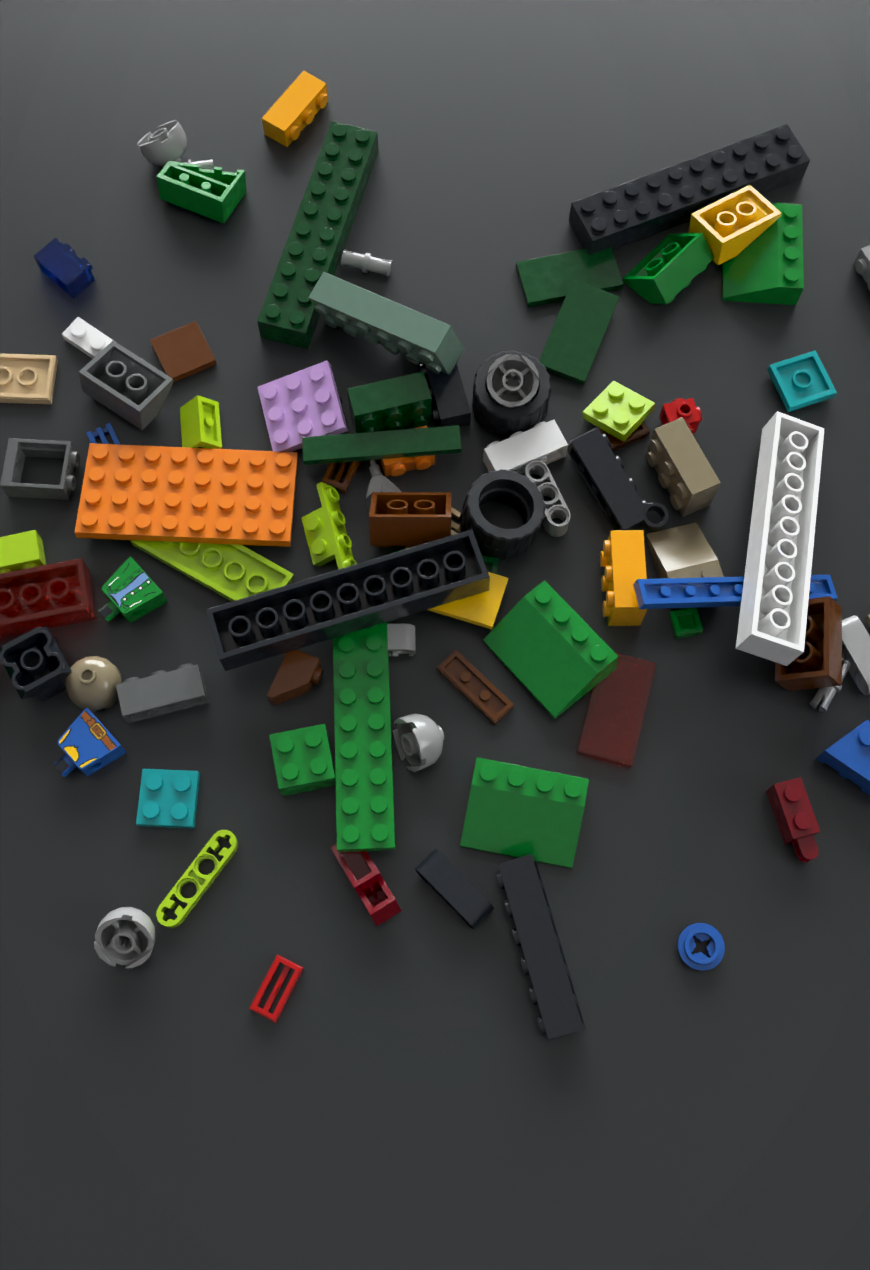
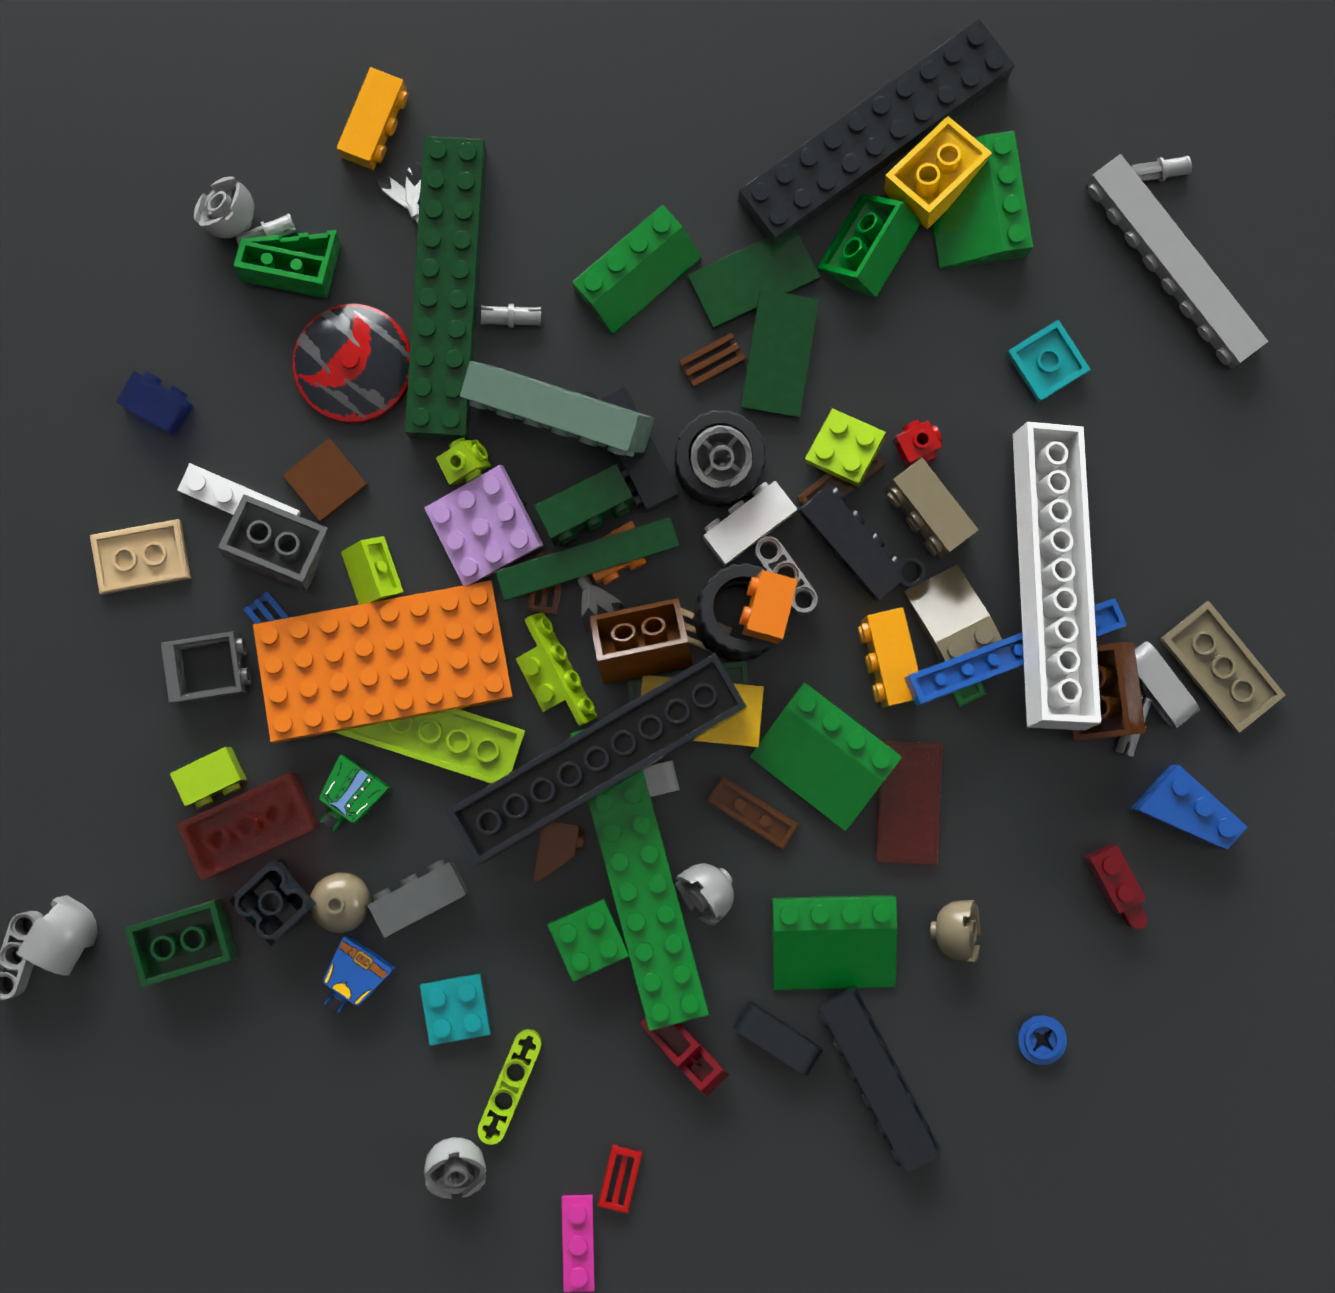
camera: 15 degrees left, 15 degrees up
(221, 1041) = (578, 1243): none -> dark pink plate
(229, 273) = (352, 363): none -> dish
(298, 354) = (463, 461): none -> lime brick
(304, 167) = (408, 196): none -> white piece
(475, 248) = (637, 269): none -> green slope
(519, 324) = (734, 348): none -> reddish brown tile
(526, 503) = (768, 606): none -> orange brick
(640, 825) = (958, 930): none -> dark tan cylinder

